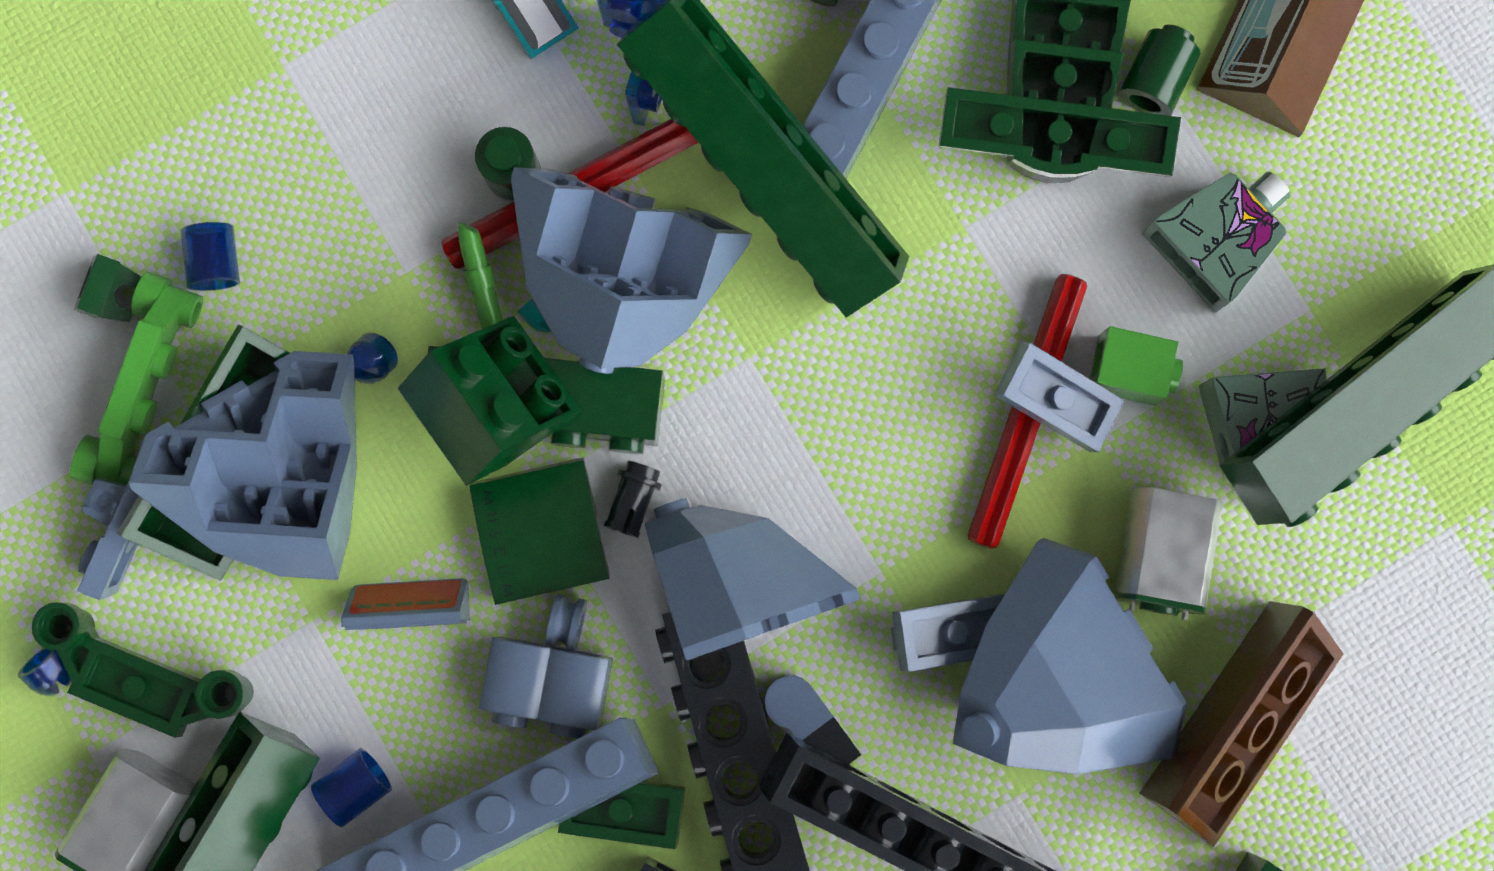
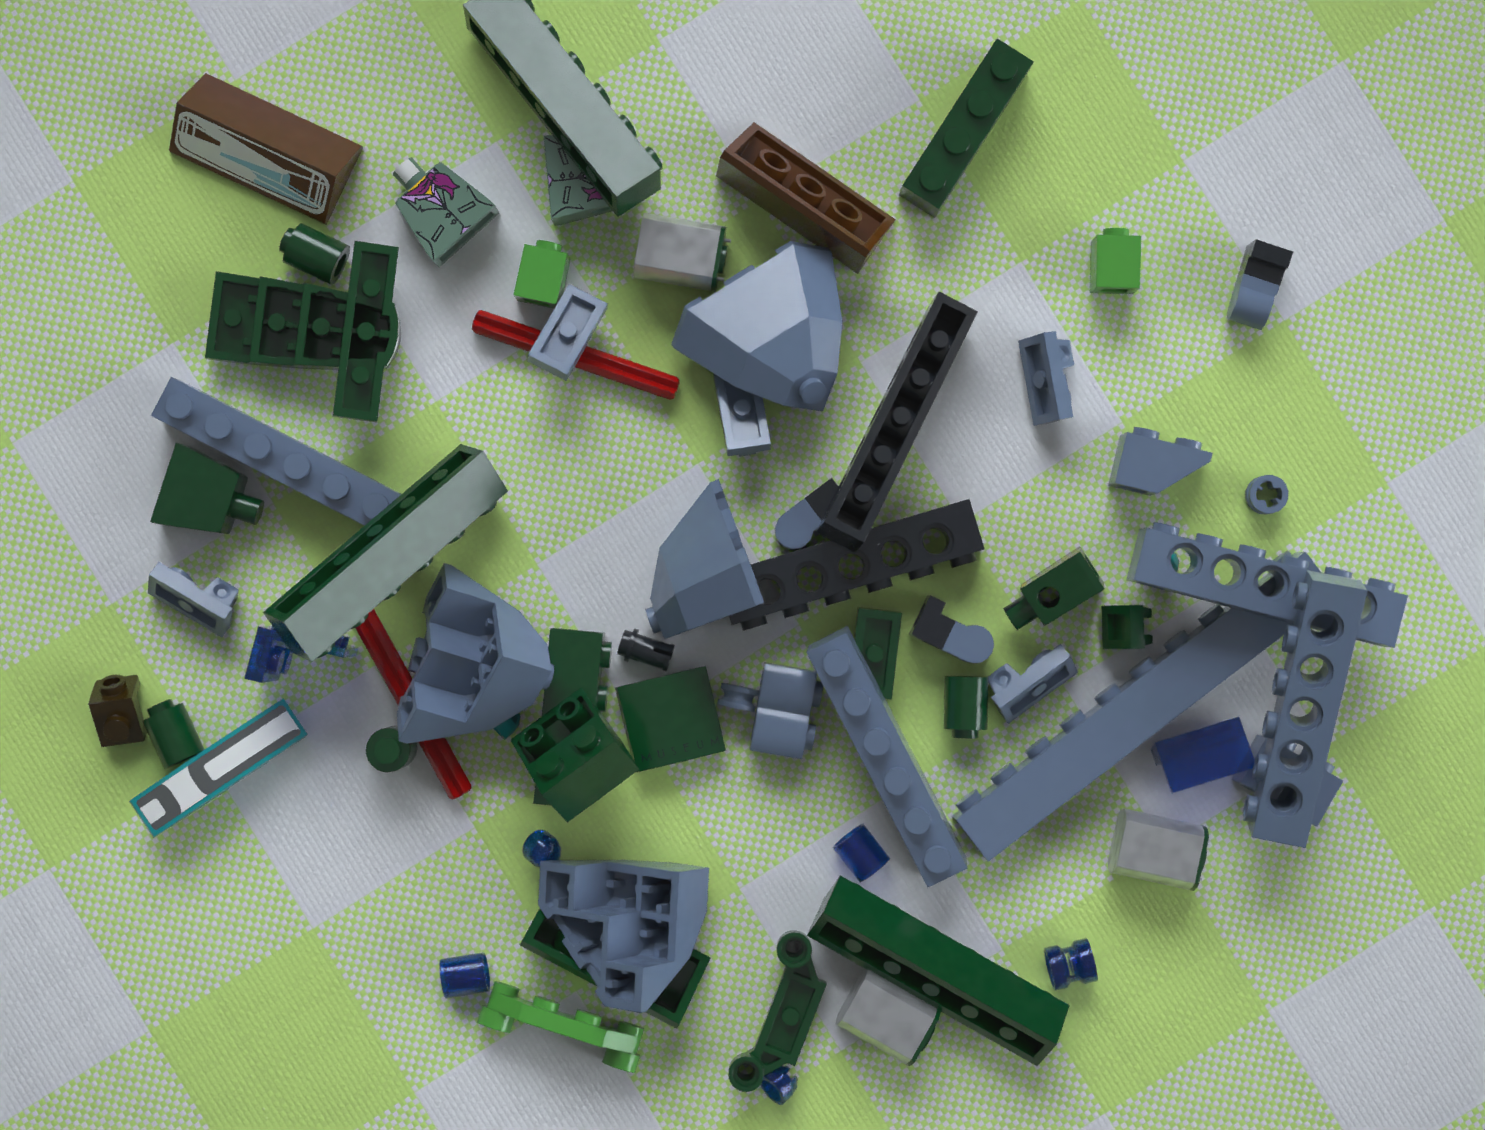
camera: 90 degrees left, 5 degrees up
(99, 288) = (489, 1058): dark green tile -> none
(109, 558) = (657, 1035): sand blue hinge -> none
(407, 604) = (726, 816): slope -> none
(479, 275) = (480, 768): bright green piece -> none

